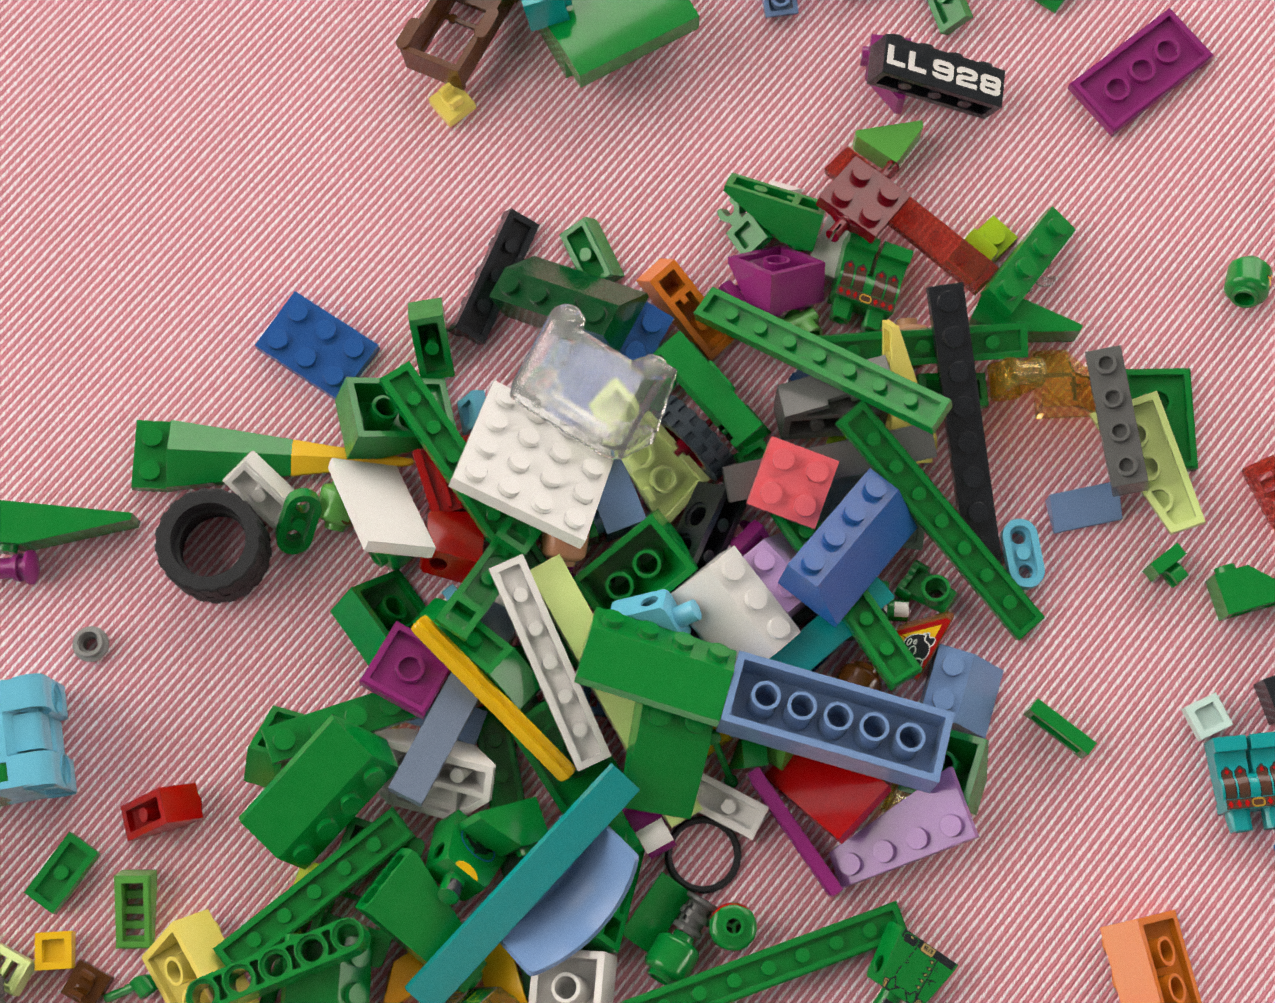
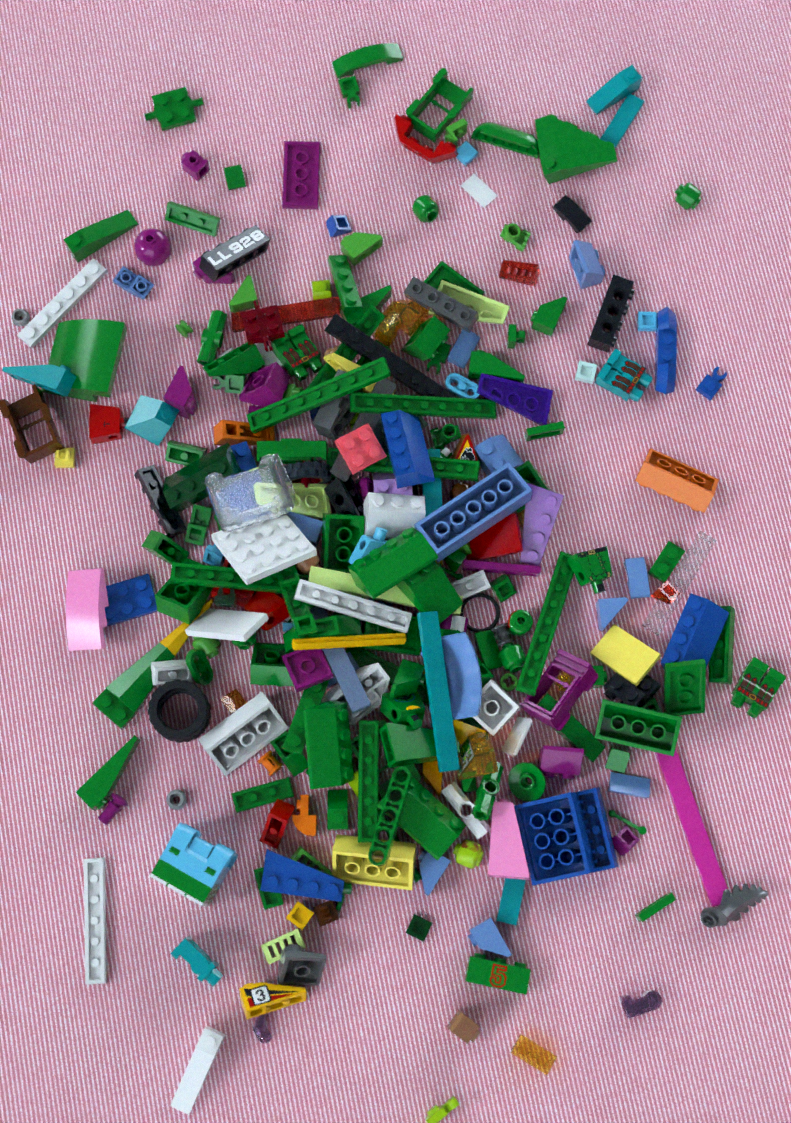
camera: 55 degrees left, 0 degrees up
(96, 898) = (295, 878): none -> blue wing
(189, 758) = (262, 795): none -> green tile
(191, 848) = (304, 822): none -> orange brick
(236, 719) = (270, 763): none -> orange bush
(244, 882) = (337, 810): none -> green slope
(252, 659) = (243, 733): none -> white slope
(256, 303) = (86, 609): none -> bright pink slope
(288, 609) = (233, 701): none -> clear orange slope
(414, 475) = (226, 600): none -> clear green tile
(502, 356) = (198, 525): none -> green slope
(544, 116) = (105, 423): none -> red torso
(598, 167) = (151, 419): none -> teal slope
(635, 970) = (513, 679): none -> bright green bush
(667, 176) = (181, 395): none -> magenta slope
(768, 858) = (502, 587): none -> green slope
(769, 103) = (183, 329): none -> bright green bush
(789, 150) = (212, 337): none -> green piece
(1042, 478) = (441, 357): none -> green plate
(1048, 444) = (426, 339): none -> green slope
(1079, 651) = (522, 398): none -> dark purple wing
(1085, 568) = (488, 364): none -> green slope
(1107, 237) = (360, 245): none -> bright green slope
(1111, 183) = (338, 225): none -> blue slope

